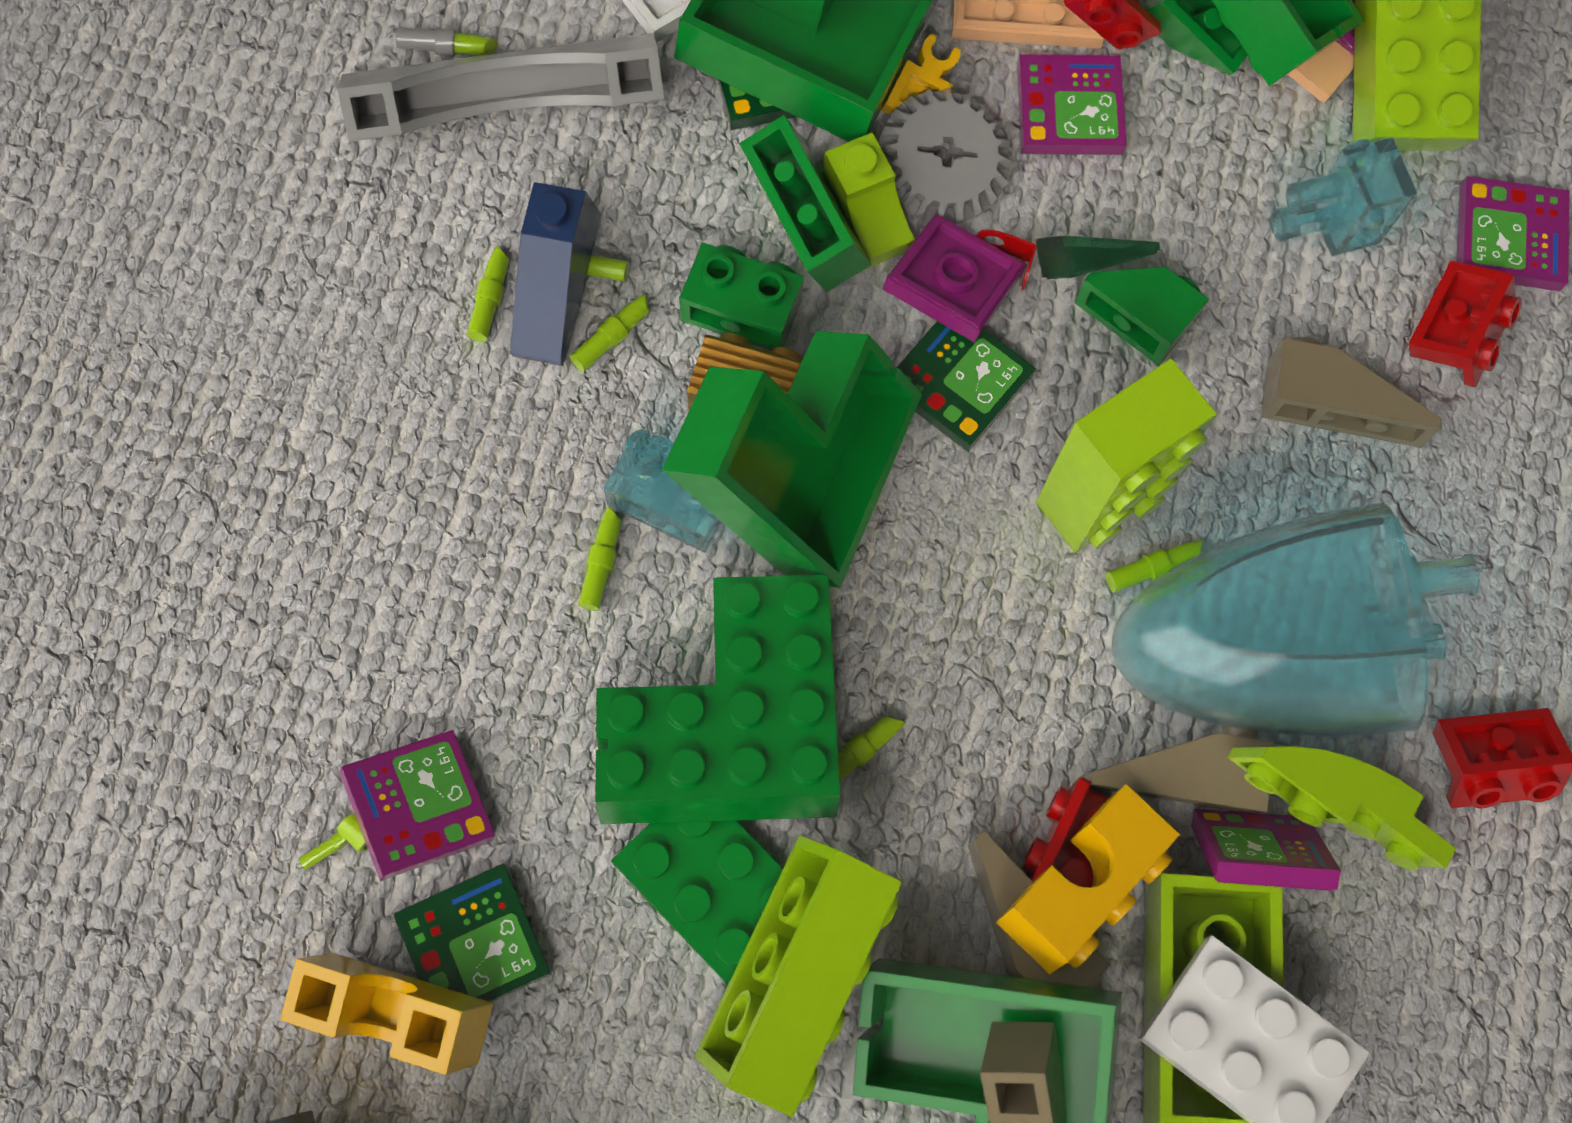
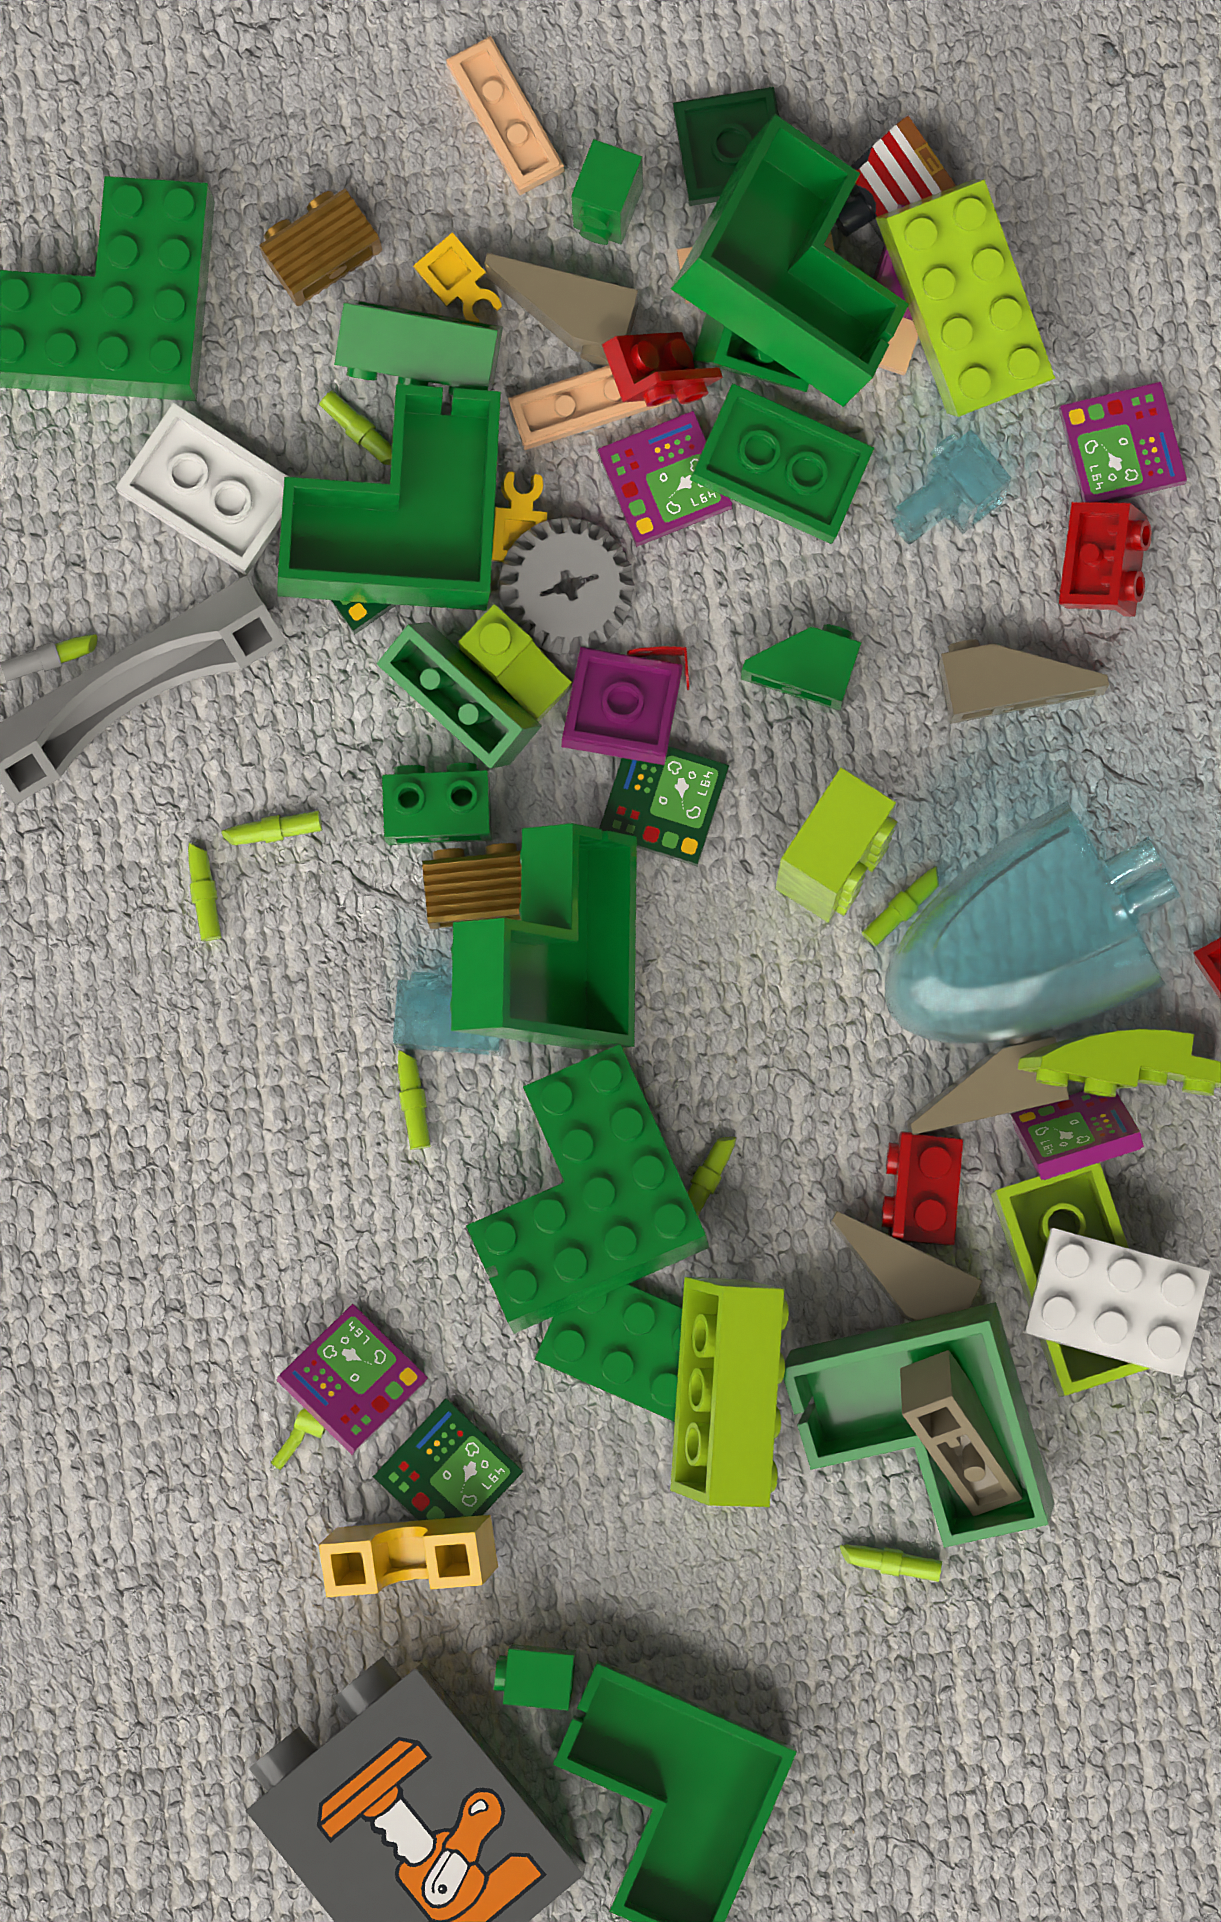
camera: 10 degrees left, 10 degrees up
(551, 271) = (257, 858): slope -> none
(611, 333) = (331, 884): lime piece -> none
(1057, 918) = (924, 1263): yellow arch -> none
(1079, 255) = (735, 641): clear green slope -> none
(1187, 125) = (782, 463): none -> green plate

